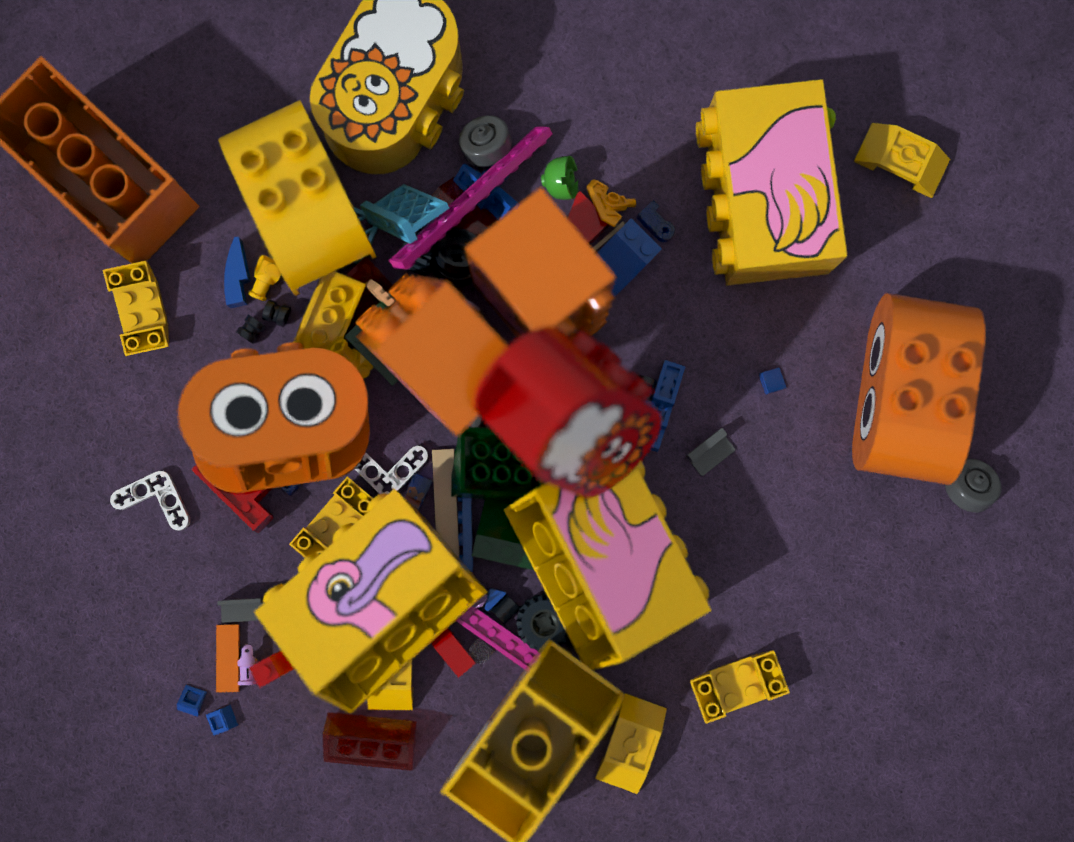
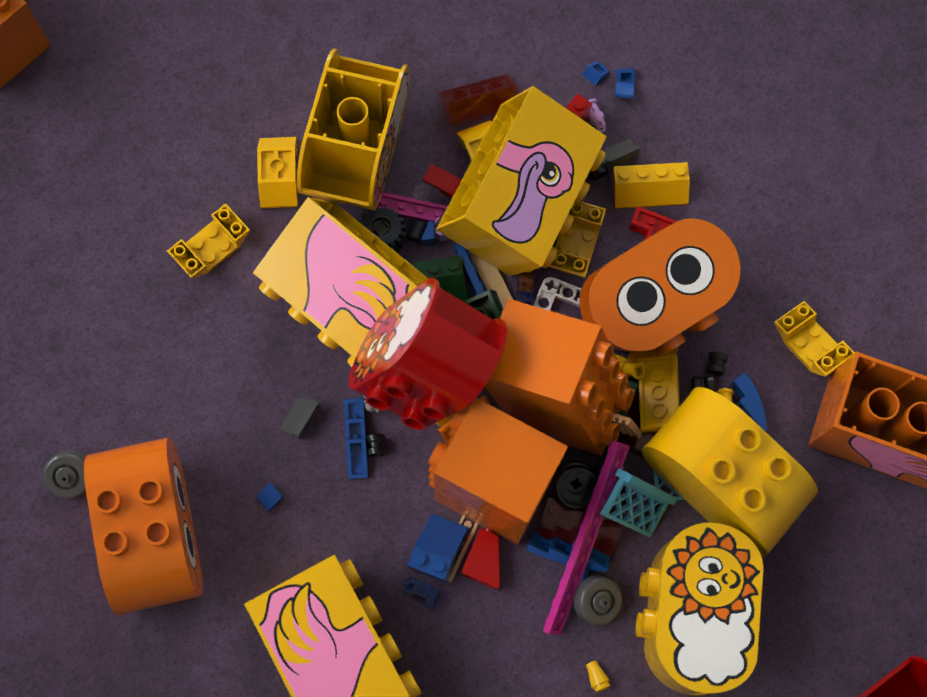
camera: 155 degrees right, 10 degrees down
(161, 493) = (723, 213): white beam -> none
(201, 682) = (624, 90): none -> blue slope
(225, 555) = (650, 185): none -> yellow slope
(226, 658) = (613, 116): orange tile -> none
(517, 71) = (598, 679): none -> yellow cone
(560, 178) = (519, 594): bright green cylinder -> none
(608, 204) = (470, 588): light orange piece -> none

